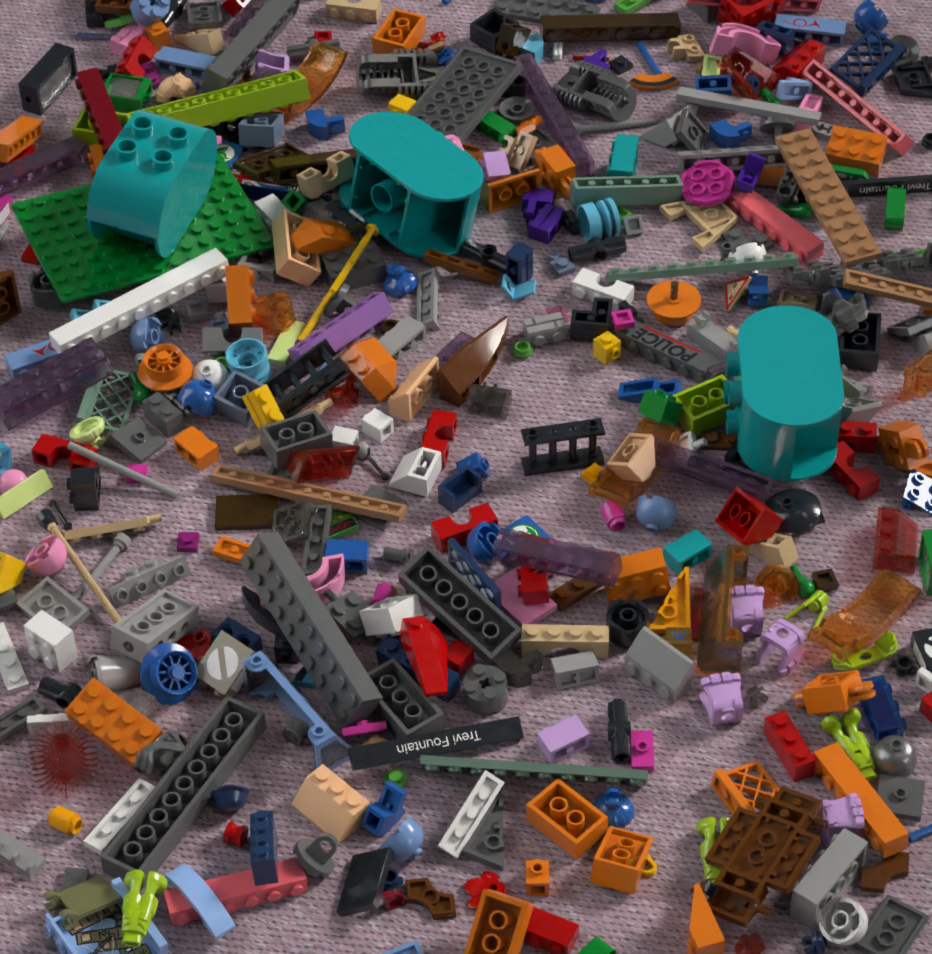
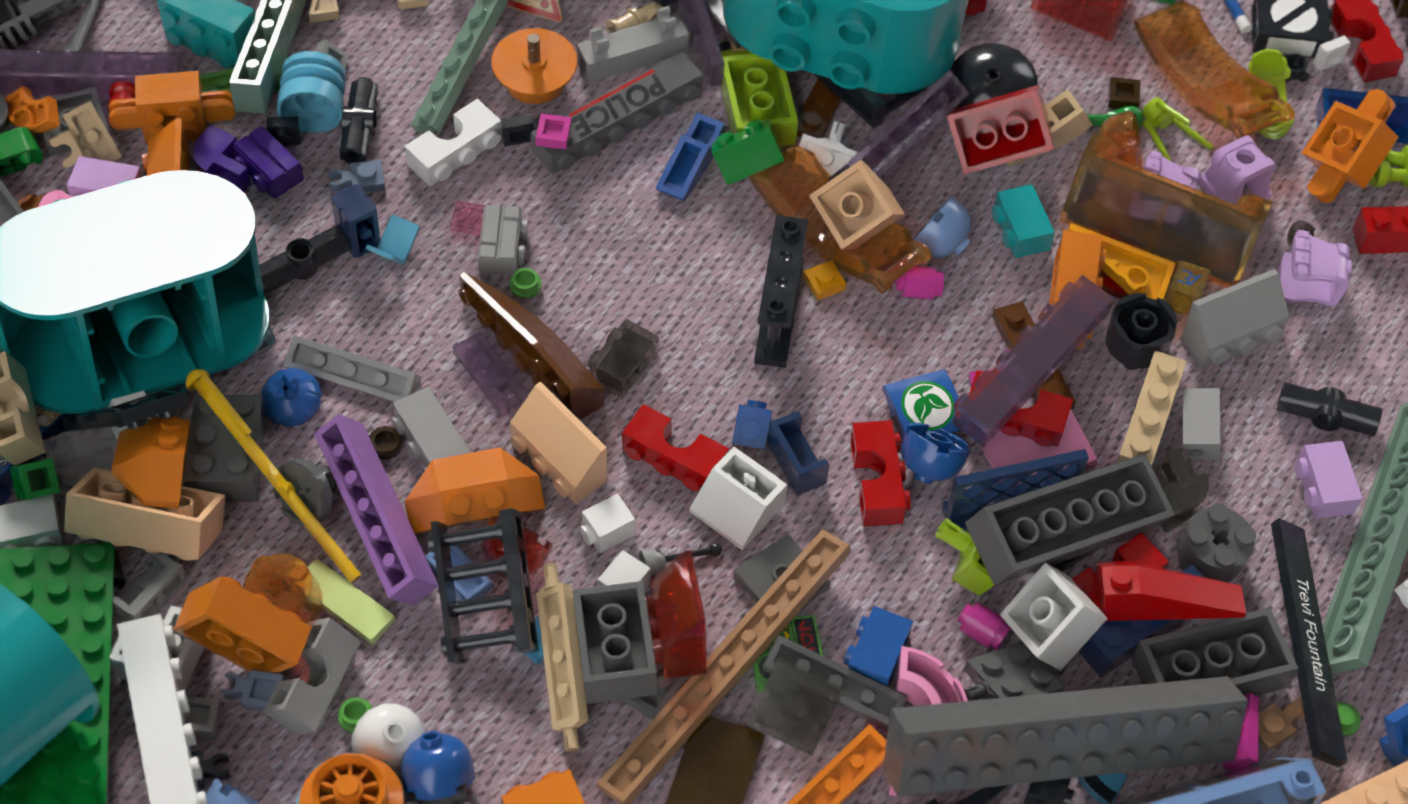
camera: 75 degrees left, 10 degrees up
(229, 397) = (465, 699): sand blue brick -> none
(249, 358) = (392, 648): medium azure wheel -> none
(262, 406) = (524, 669): yellow brick -> none
(398, 555) = (897, 581): dark grey pin -> none
(468, 269) = (310, 299): reddish brown plate -> none
(588, 324) = (525, 168): black brick -> none
(606, 348) = (582, 176): yellow brick -> none
(642, 750) = (1368, 393): dark pink plate -> none

